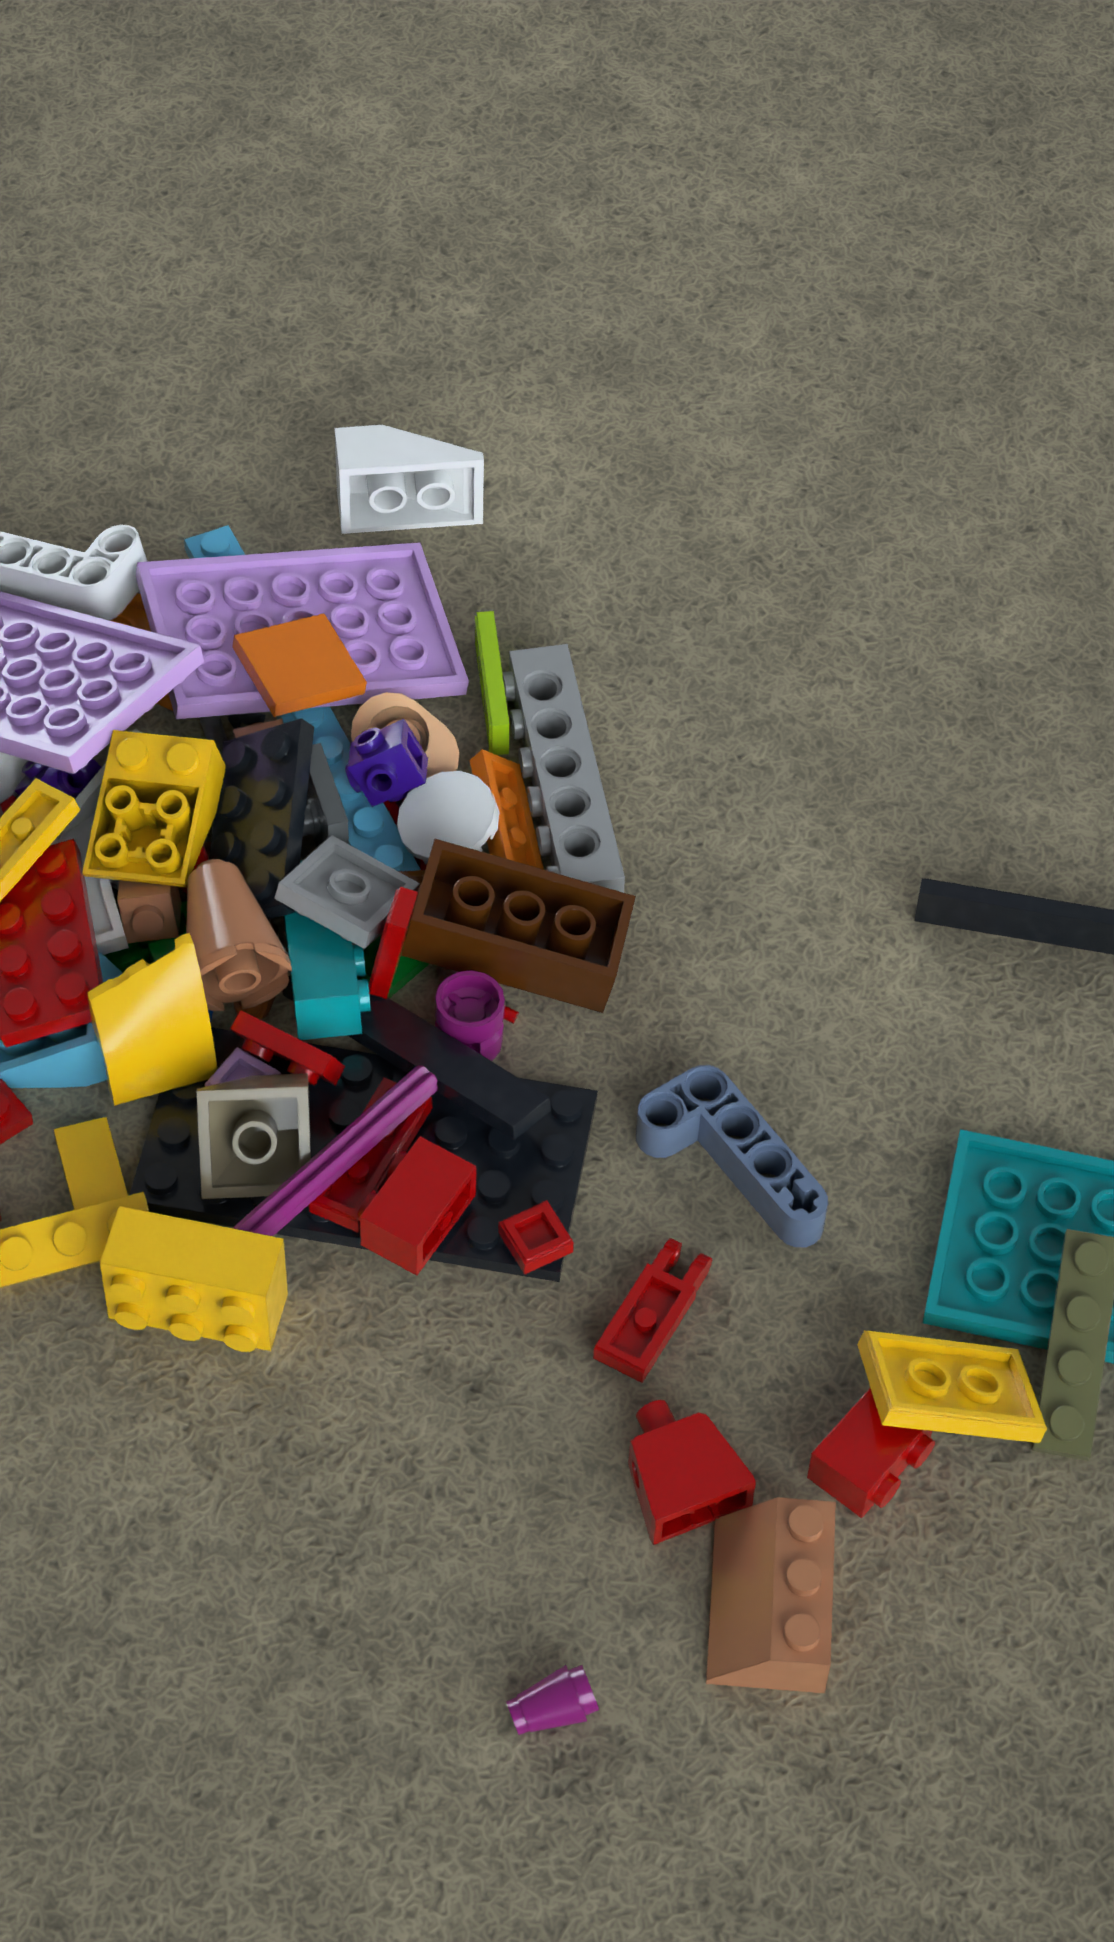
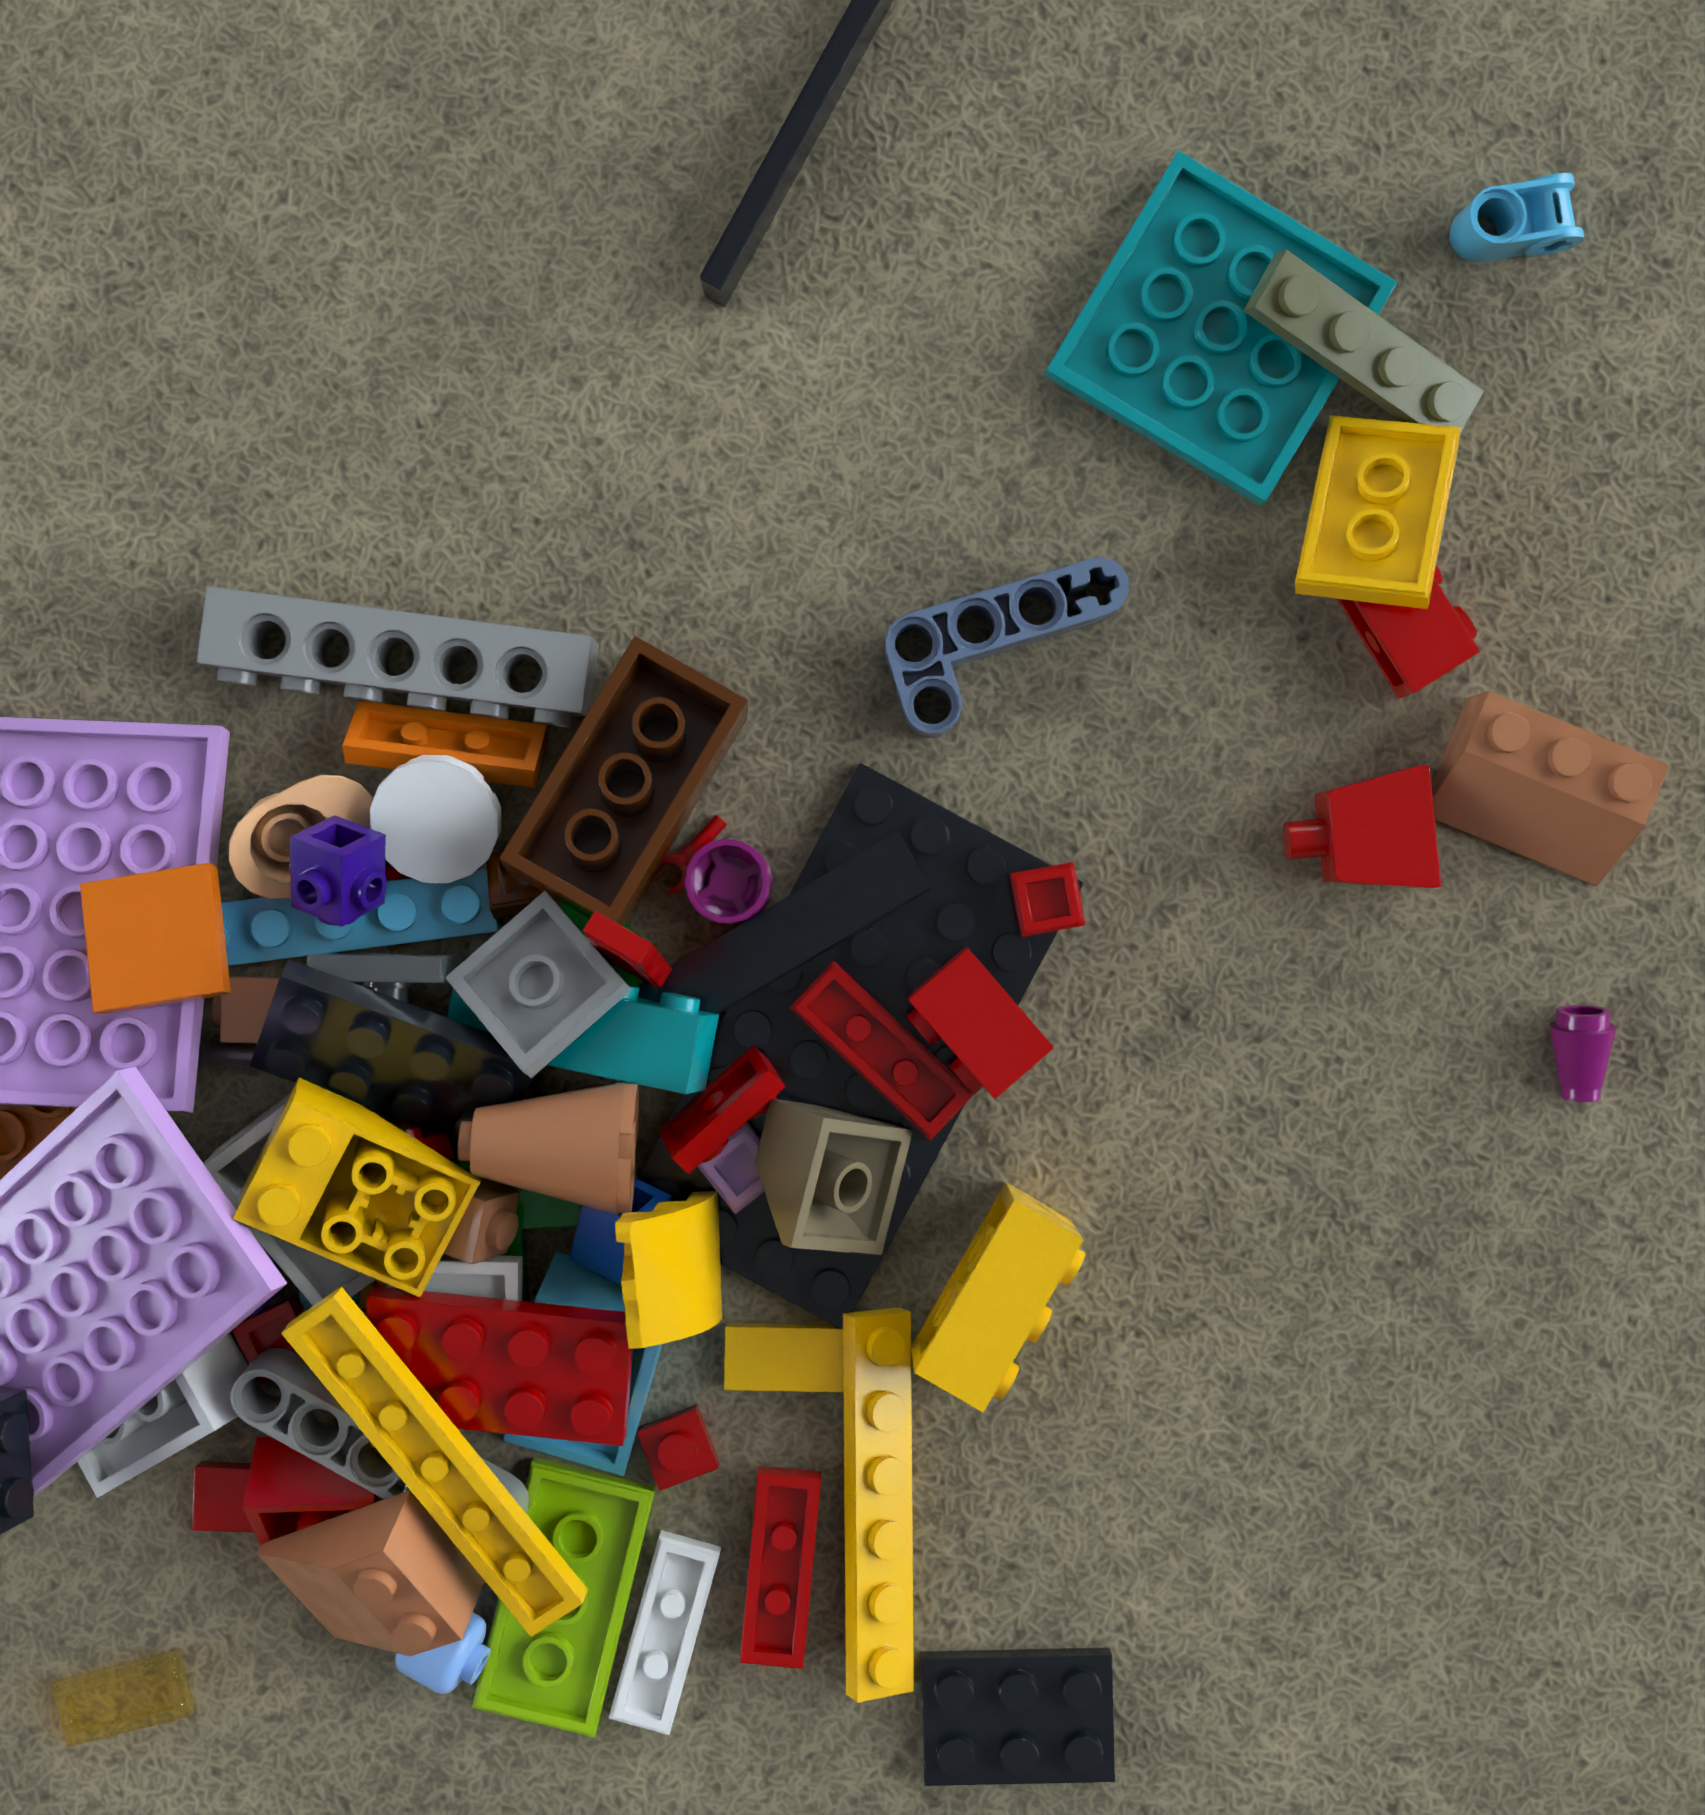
camera: 70 degrees left, 35 degrees up
(340, 1153) = (896, 1099): magenta axle -> none
(491, 683) = (224, 695): lime tile -> none
(650, 1313) = (1164, 798): red hinge -> none

